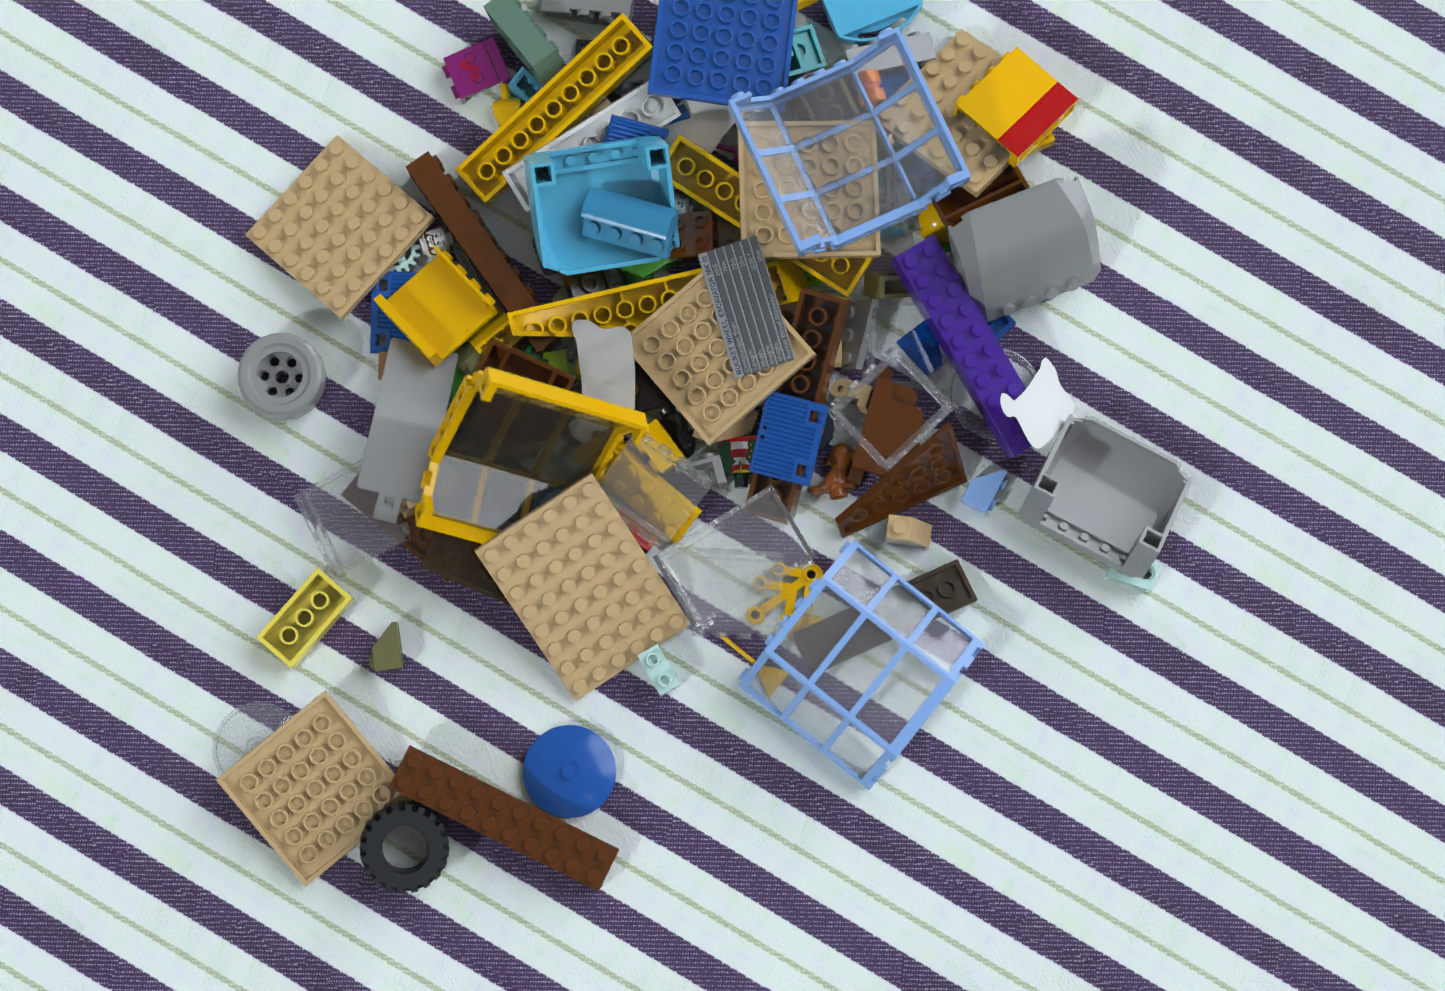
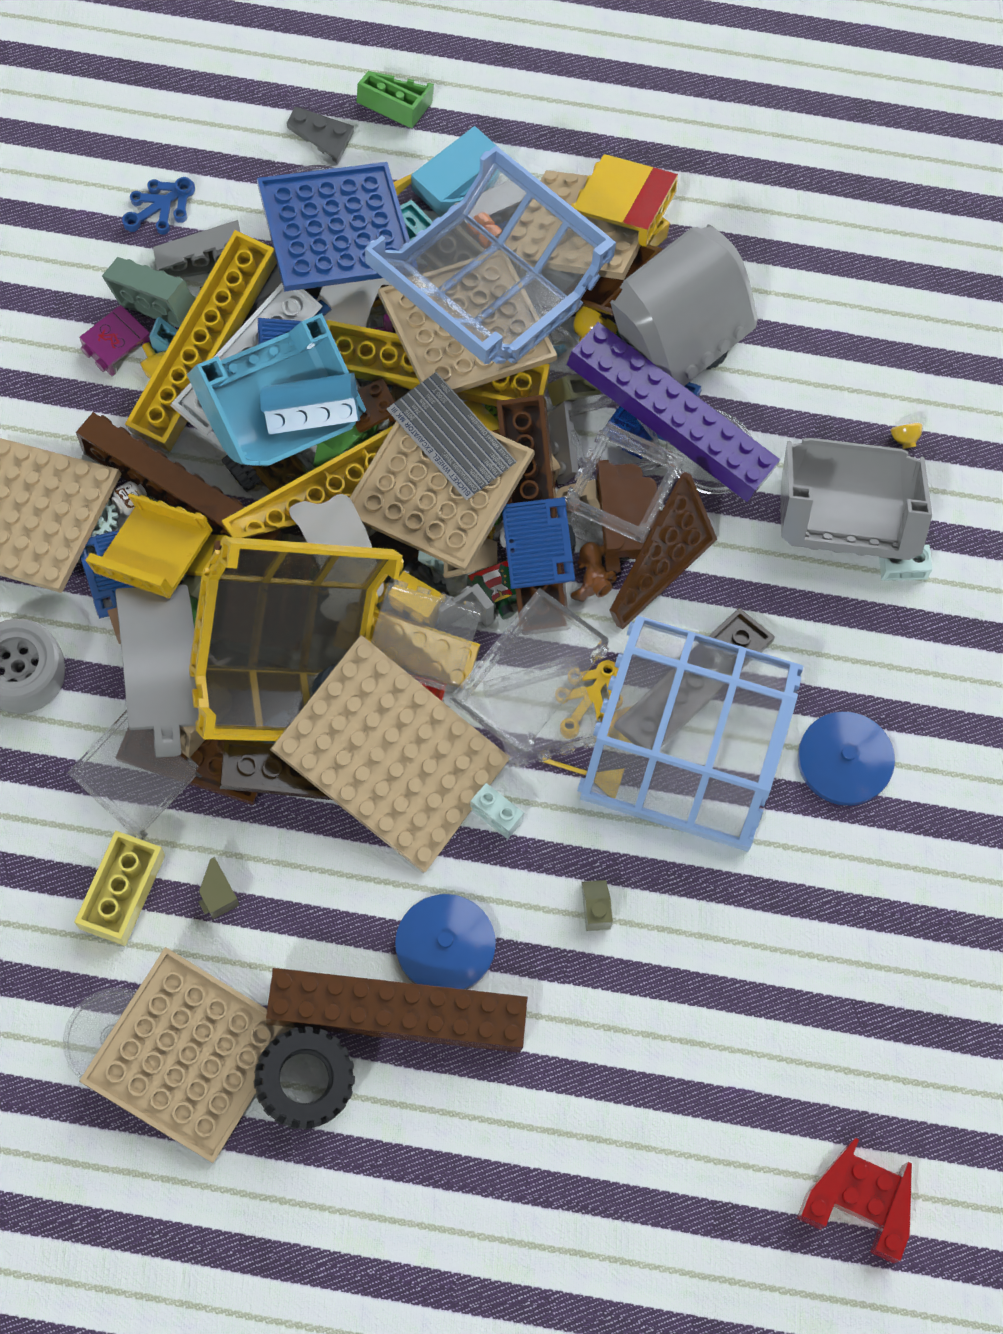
camera: 25 degrees left, 15 degrees down
(714, 786) = (597, 905): none -> olive slope
(907, 531) = (680, 597): tan slope -> none
(982, 490) = (735, 540): light blue slope -> none
(994, 736) = (846, 758): none -> blue dish
(1041, 407) = (759, 440): white sticker -> none
(1194, 442) = (907, 434): none -> yellow brick

